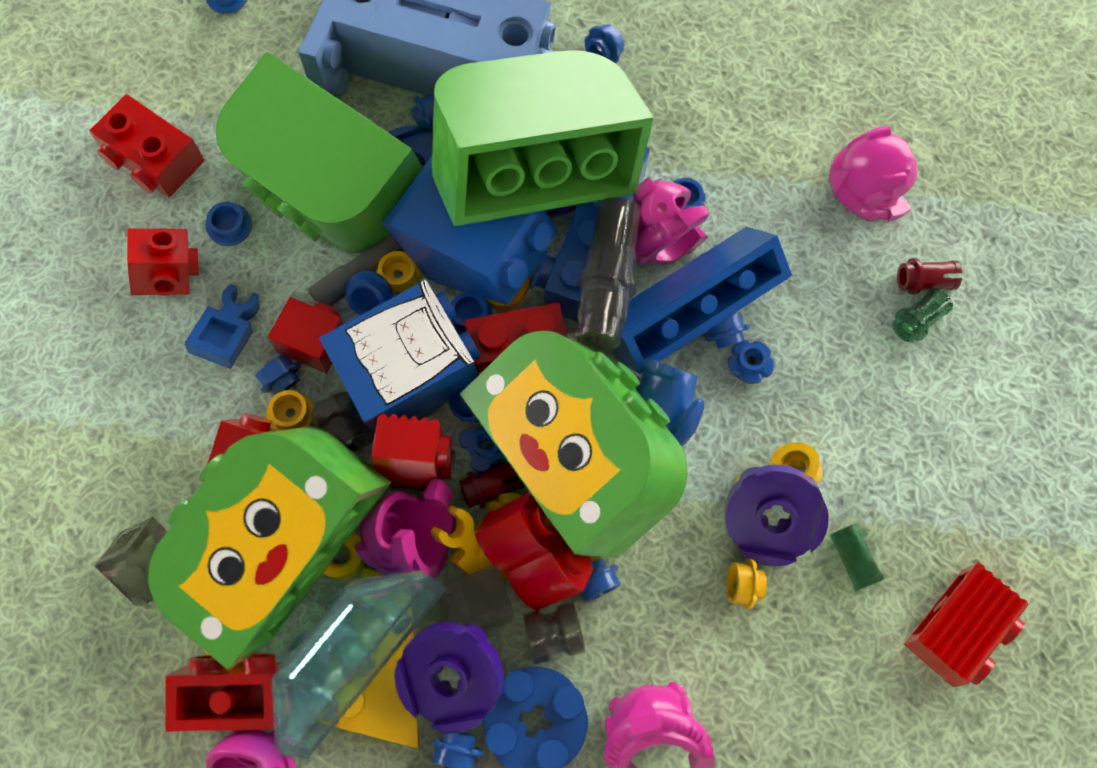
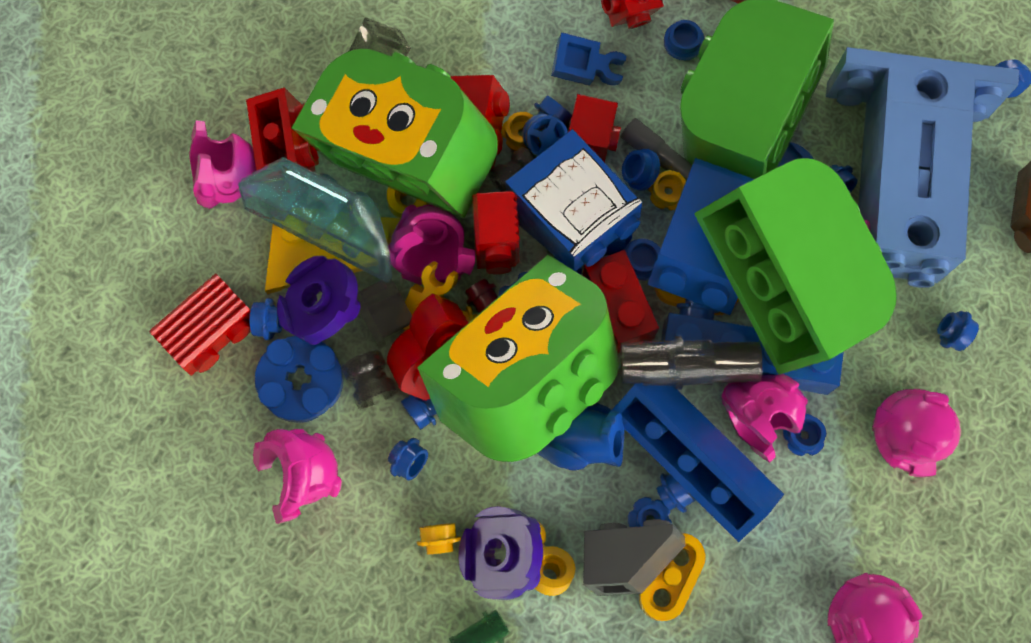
camera: 80 degrees right, 5 degrees up
(317, 372) = (547, 137): none -> blue wheel
(652, 605) = (402, 457): none -> blue plate
(697, 98) = (916, 430): none -> dark pink helmet
(796, 386) = (629, 558): none -> dark grey slope
(815, 348) = (676, 581): none -> yellow plate

